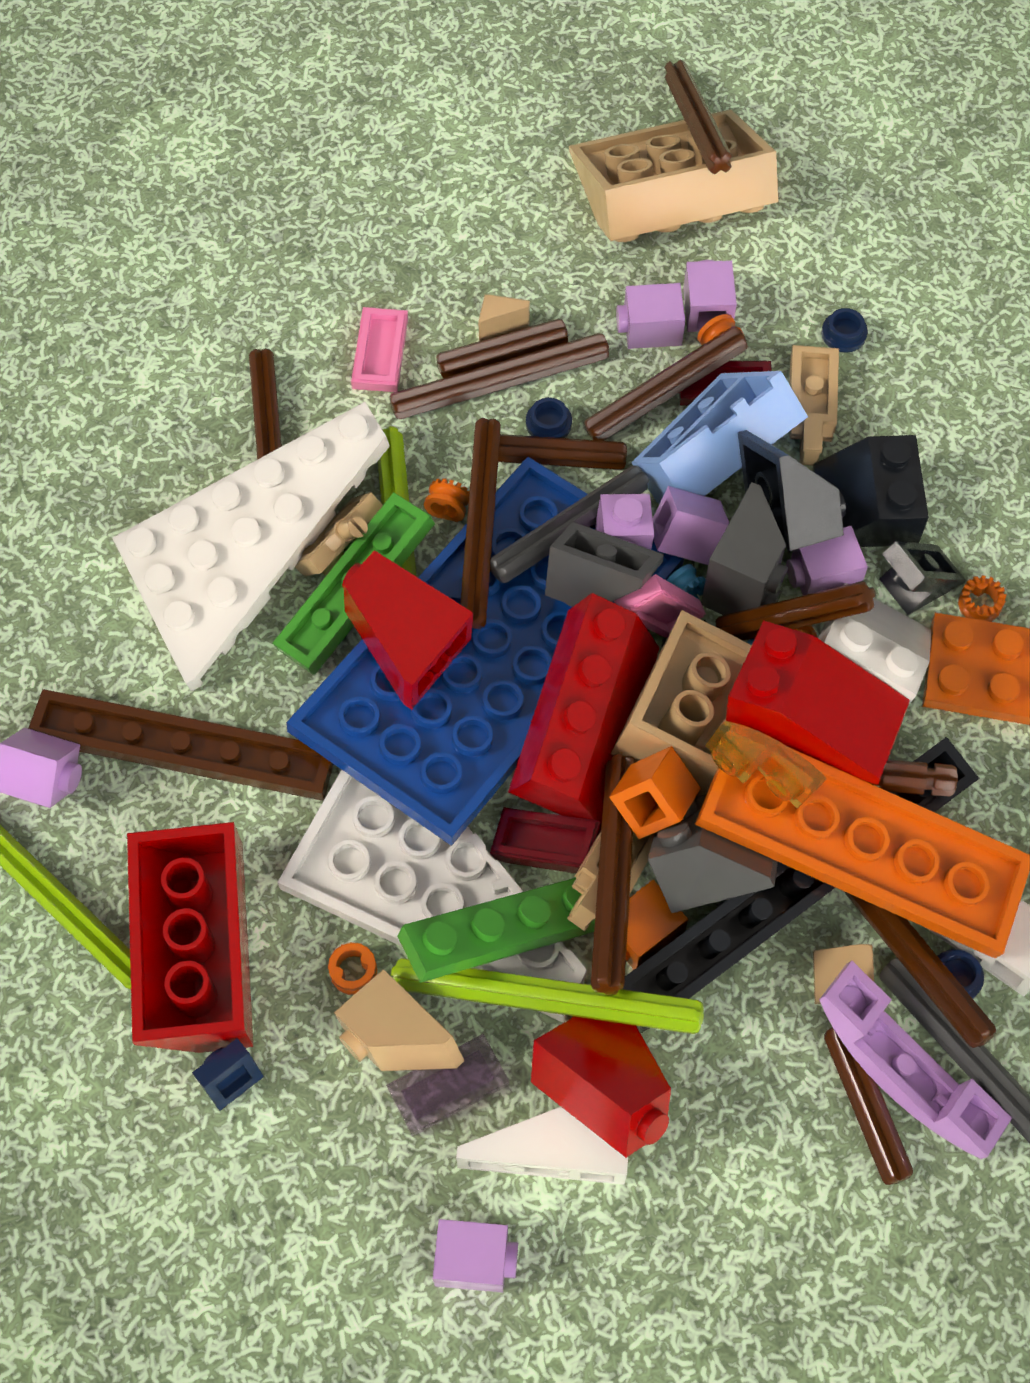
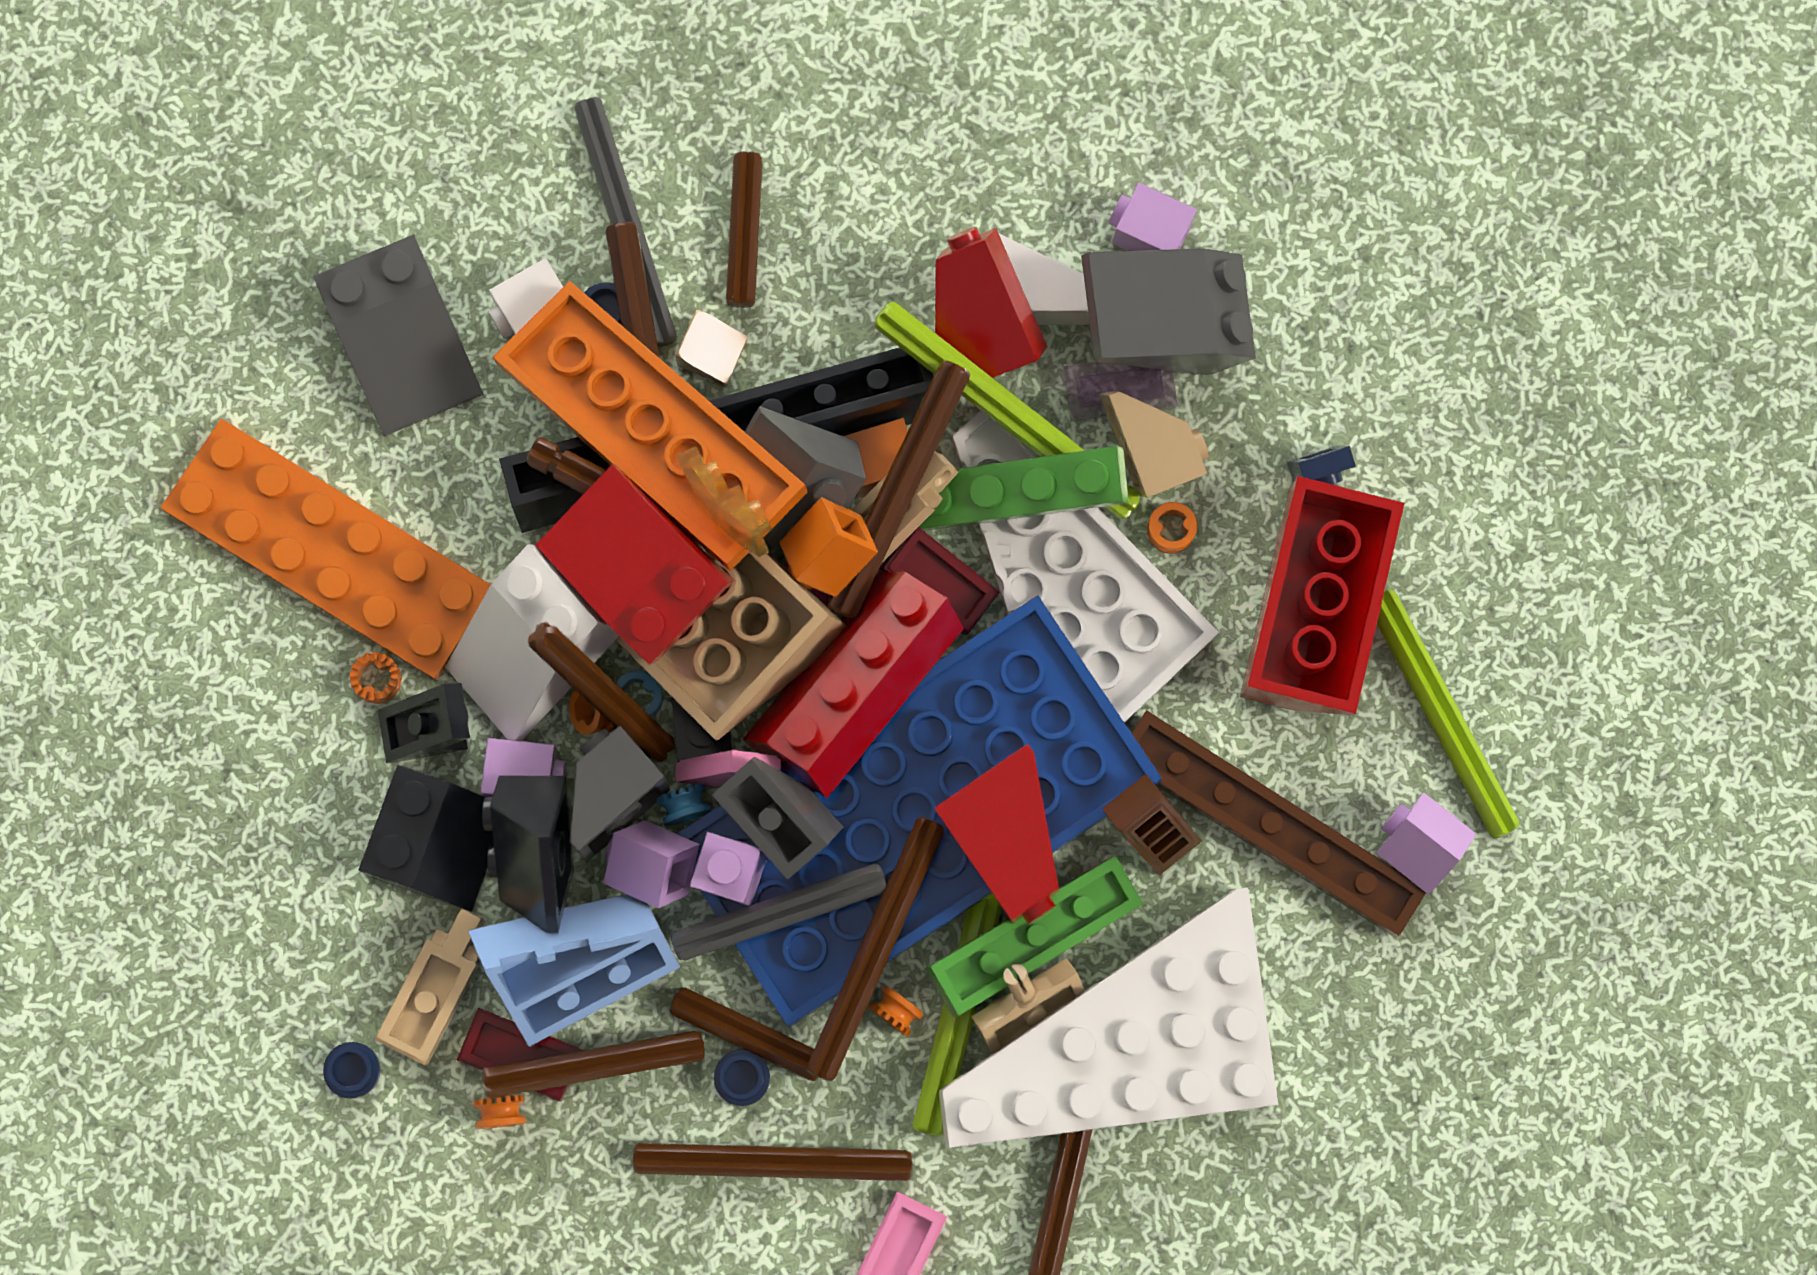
camera: 165 degrees left, 15 degrees up
(287, 689) = (1145, 818): none -> reddish brown slope
(425, 1152) = (1169, 309): none -> dark grey slope
(501, 347) = (755, 1199): reddish brown axle -> none
(502, 315) = (744, 1234): tan slope -> none
(652, 316) = (568, 1168): lavender brick -> none
(708, 292) = (487, 1174): lavender brick -> none
(905, 1070) = (694, 234): lavender slope -> none

